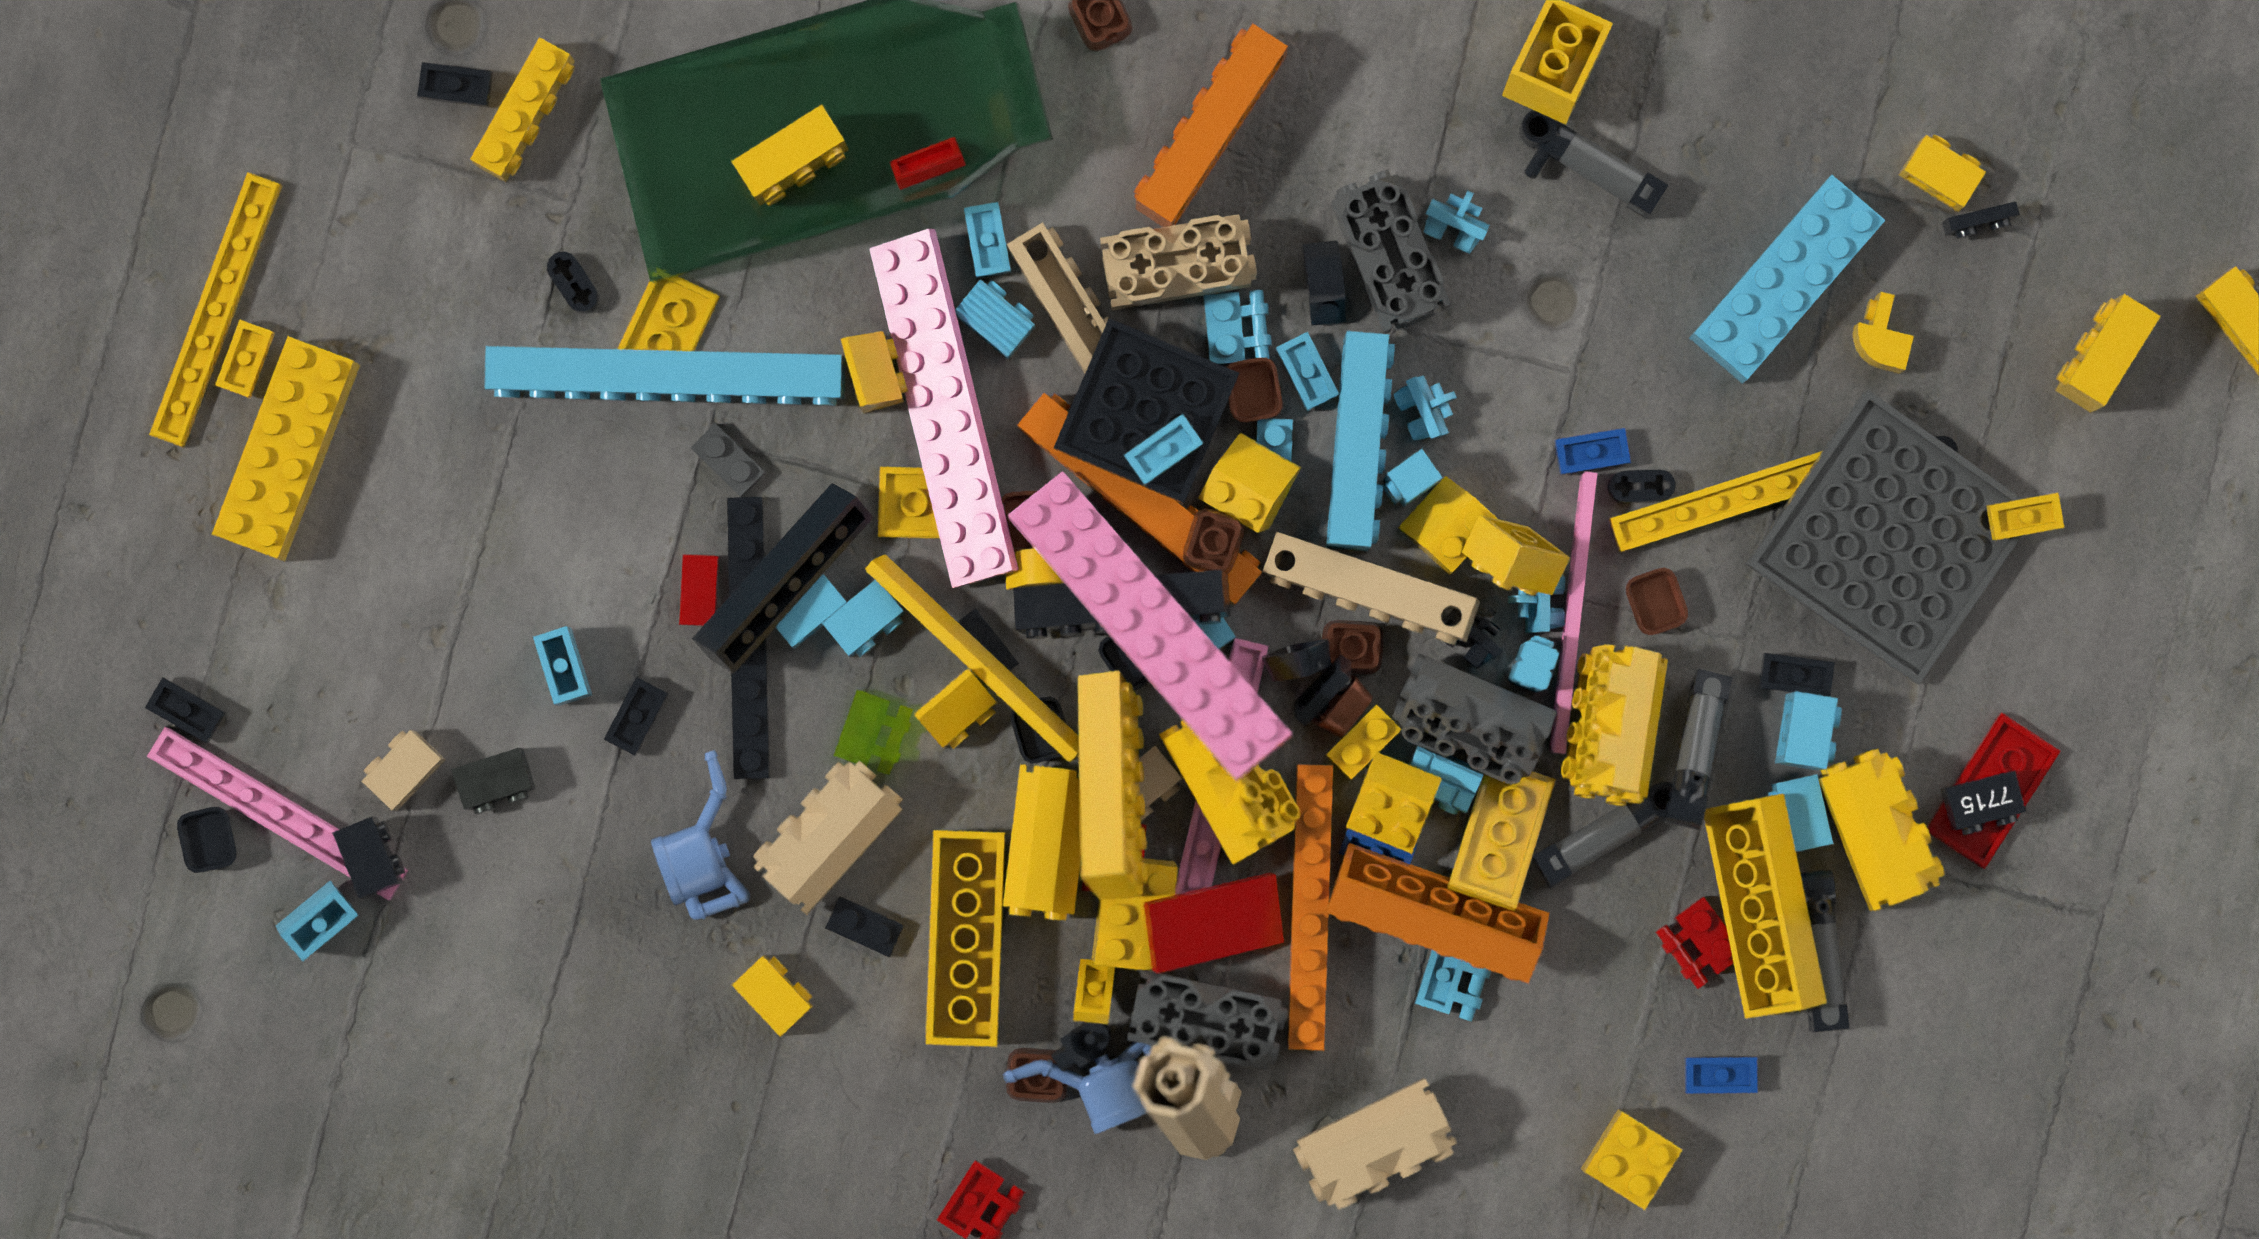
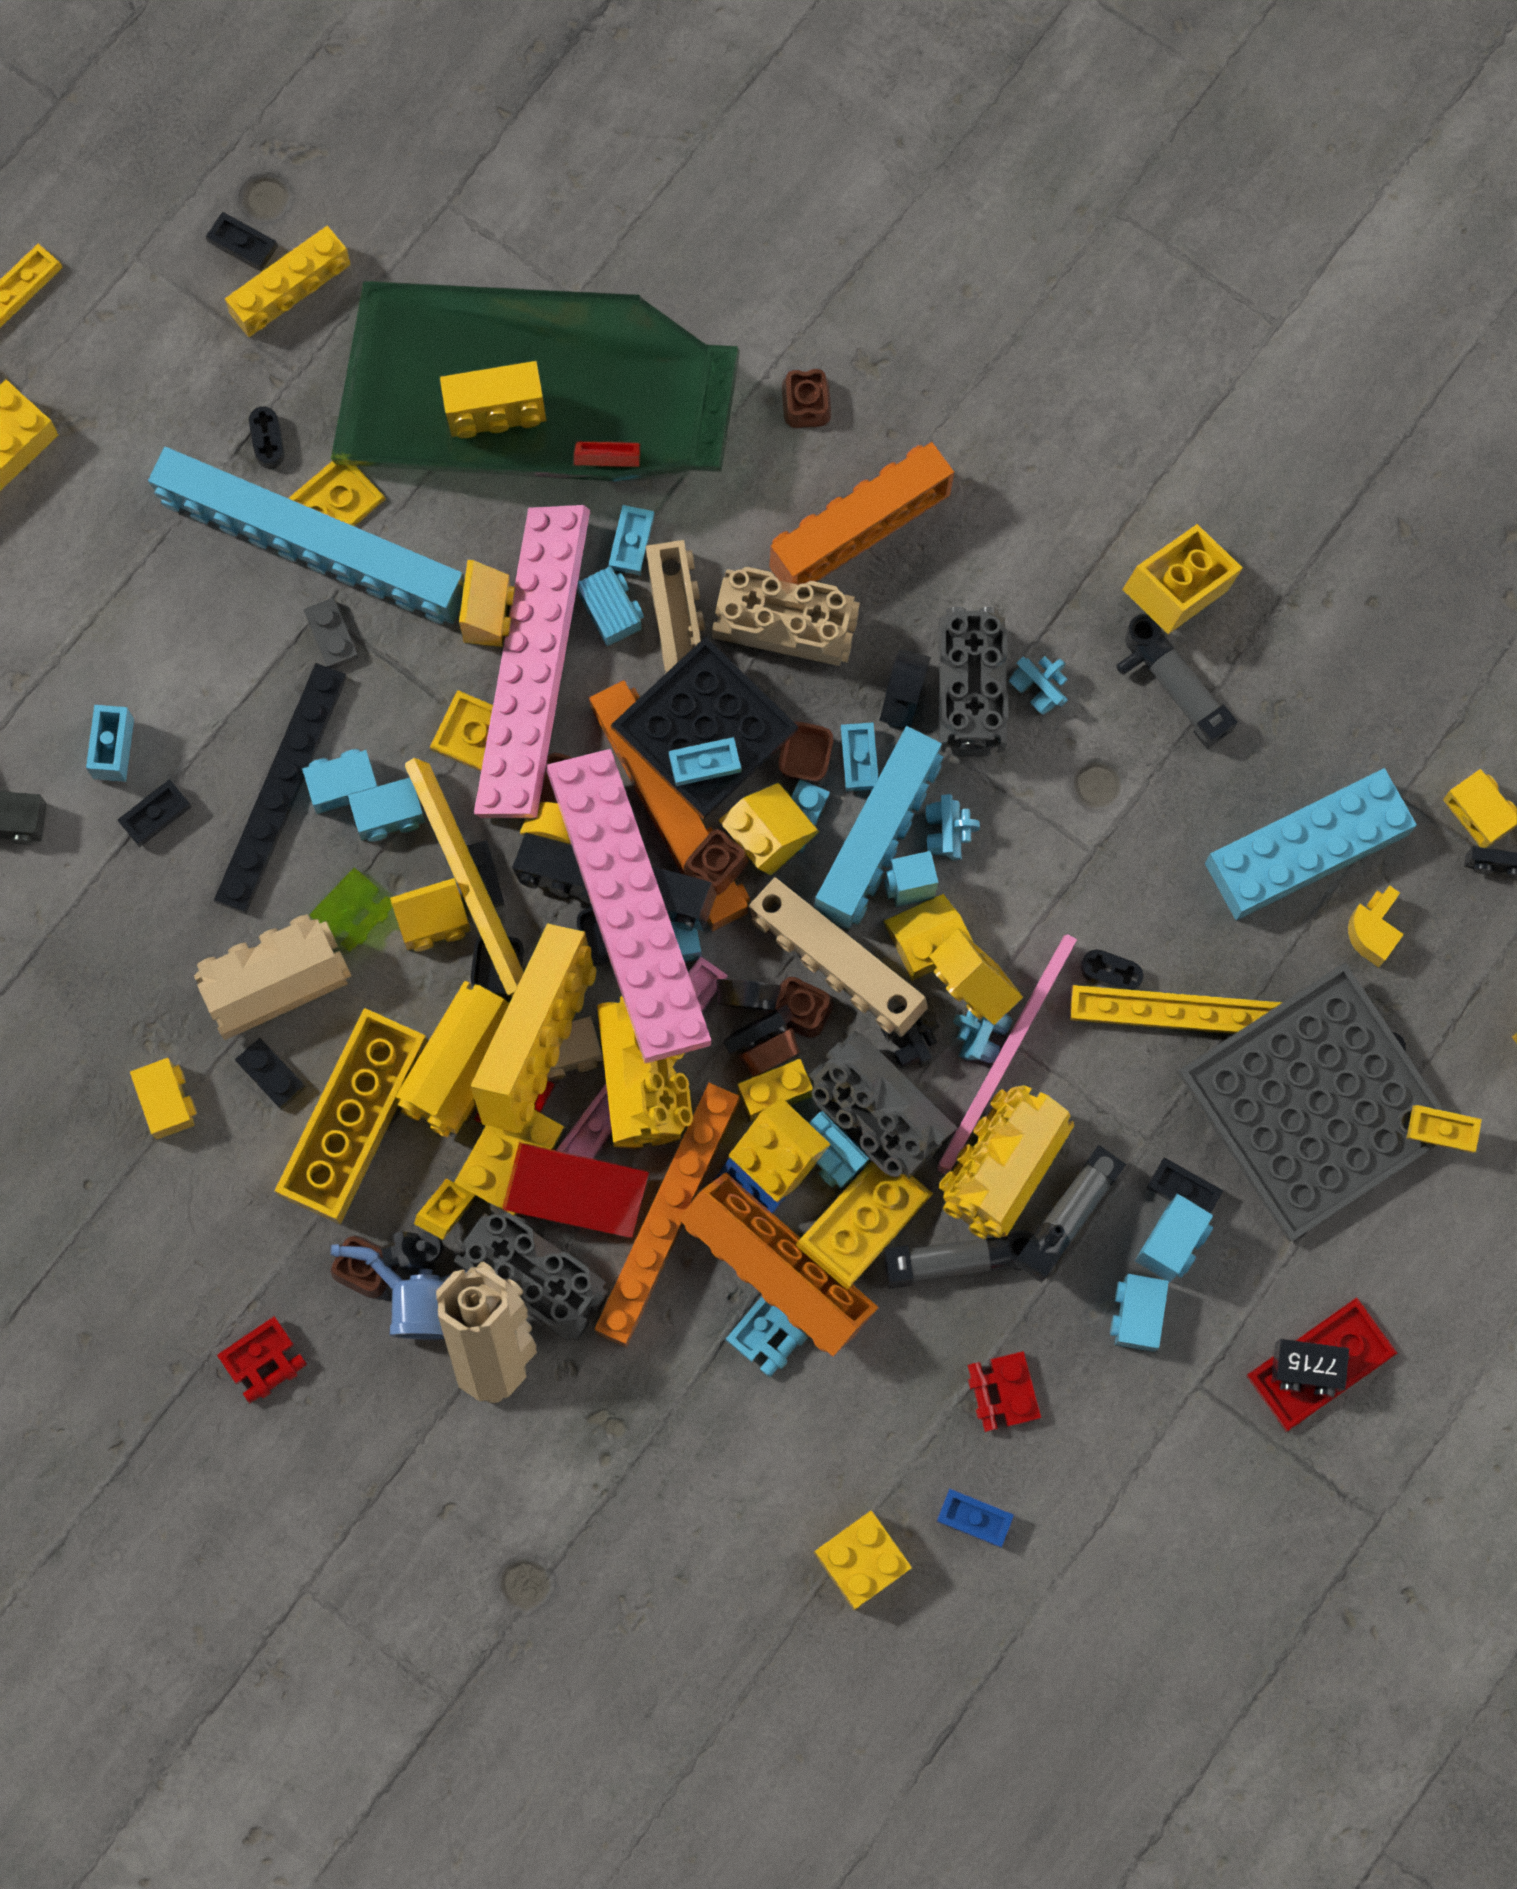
camera: 20 degrees right, 10 degrees down
(695, 862) = (147, 955): medium blue piece -> none
(698, 589) = (256, 731): red tile -> none
(782, 578) = (330, 742): black brick -> none
(1225, 327) = (805, 690): medium azure plate -> none
(1374, 1144) = (634, 1448): tan brick -> none
(1533, 664) = (953, 1081): medium azure brick -> none
(1592, 451) = (1080, 922): blue plate -> none
(1656, 601) = (1085, 1072): copper piece -> none
(1764, 906) = (1074, 1378): yellow brick -> none
(1820, 901) = (1110, 1443): piece -> none
(1879, 828) = (1205, 1351): yellow brick -> none

